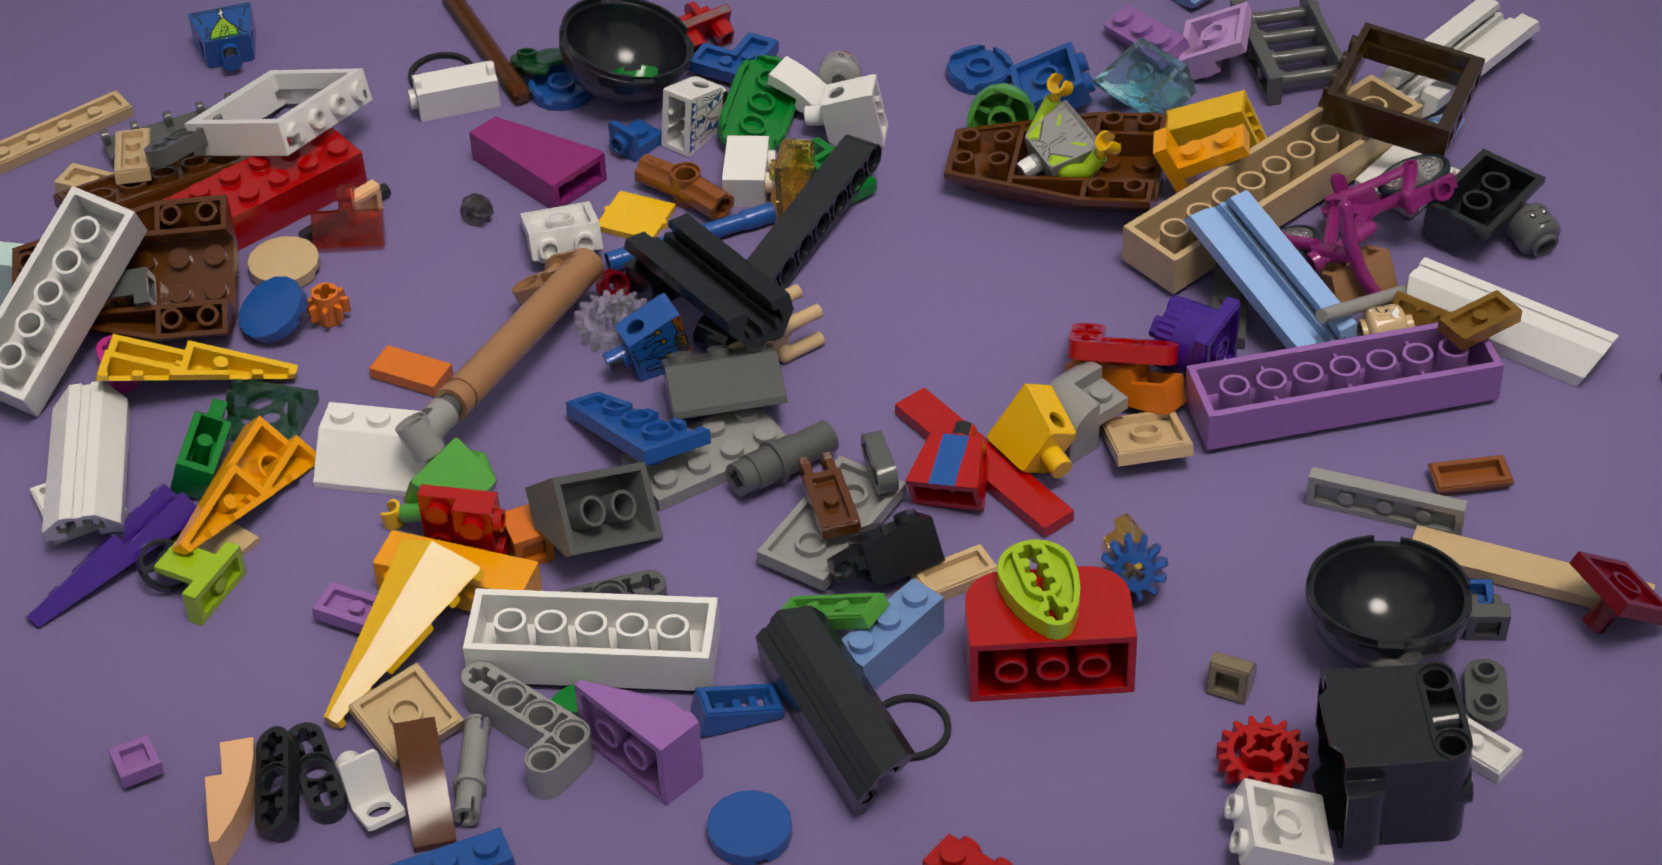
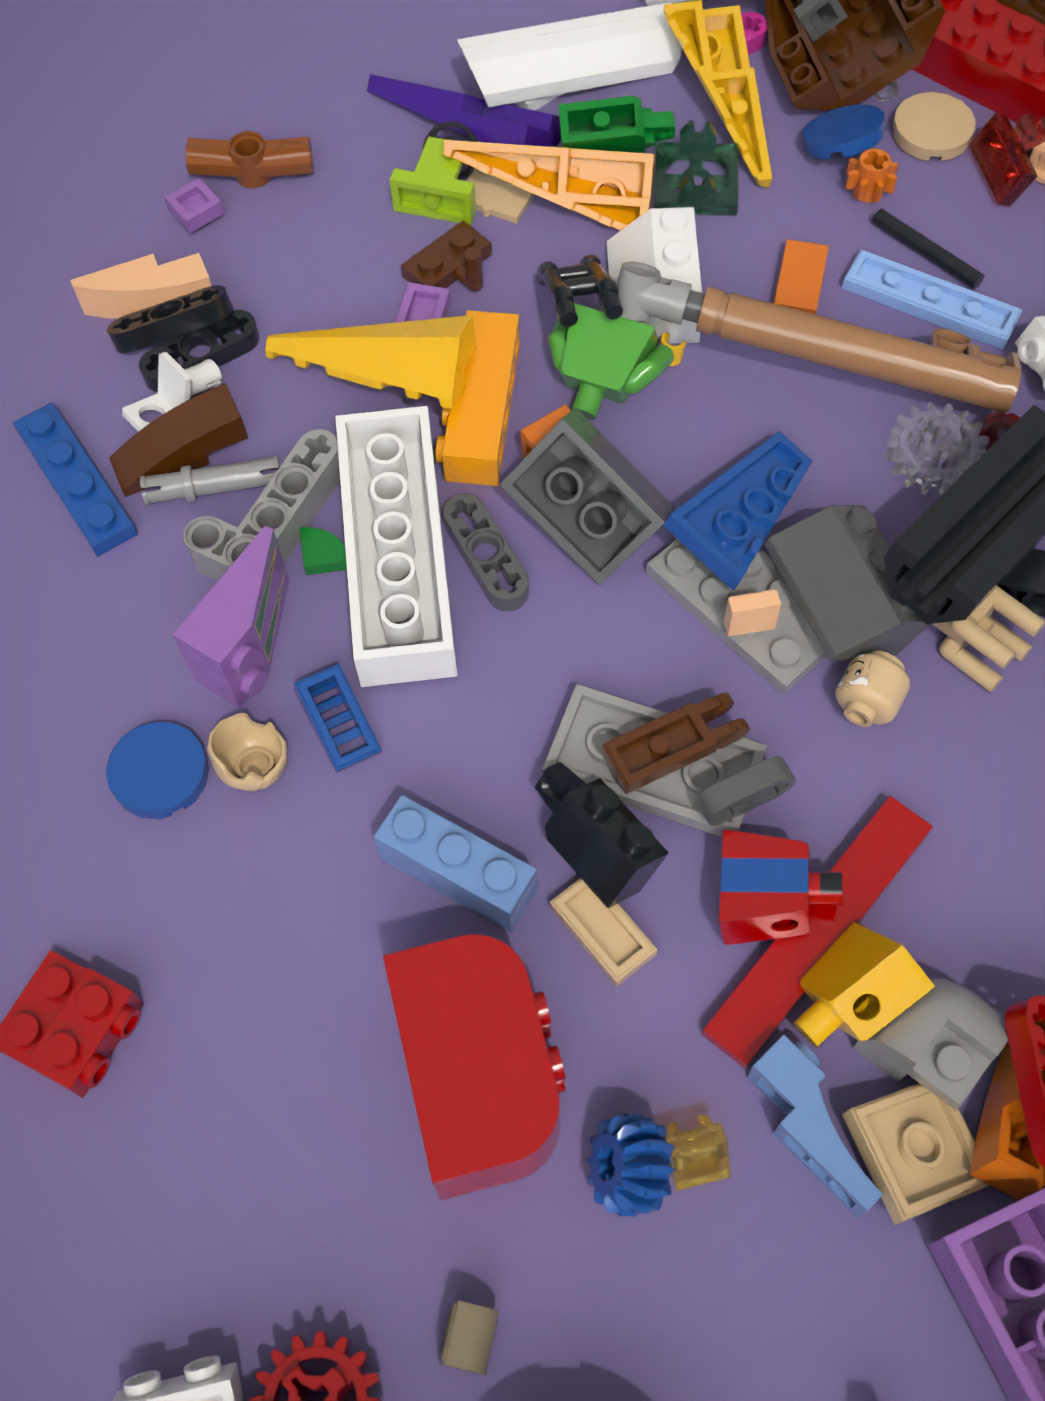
camera: 80 degrees right, 20 degrees up
(98, 712) = (249, 157): none -> dark orange piece
(286, 588) = (450, 258): none -> reddish brown plate
(396, 482) = (578, 281): none -> black piece
(402, 699) = (281, 402): tan plate -> none
(411, 293) = (928, 249): none -> black bar
(462, 302) = (932, 299): none -> light blue tile
(463, 517) = (534, 372): red plate -> none
(647, 339) = (898, 483): blue torso -> none
(735, 433) = (752, 612): none -> light nougat tile
(759, 757) = (247, 753): none -> tan hair
(778, 459) = (746, 679): dark grey piece -> none
(811, 392) = (872, 688): none -> tan head
(832, 703) = (310, 818): black piece -> none
(845, 610) = (472, 786): bright green tile -> none
(915, 698) = (311, 883): black piece -> none
(1059, 582) = (516, 1055): lime piece -> none
(1121, 485) = (791, 1081): none -> medium blue slope

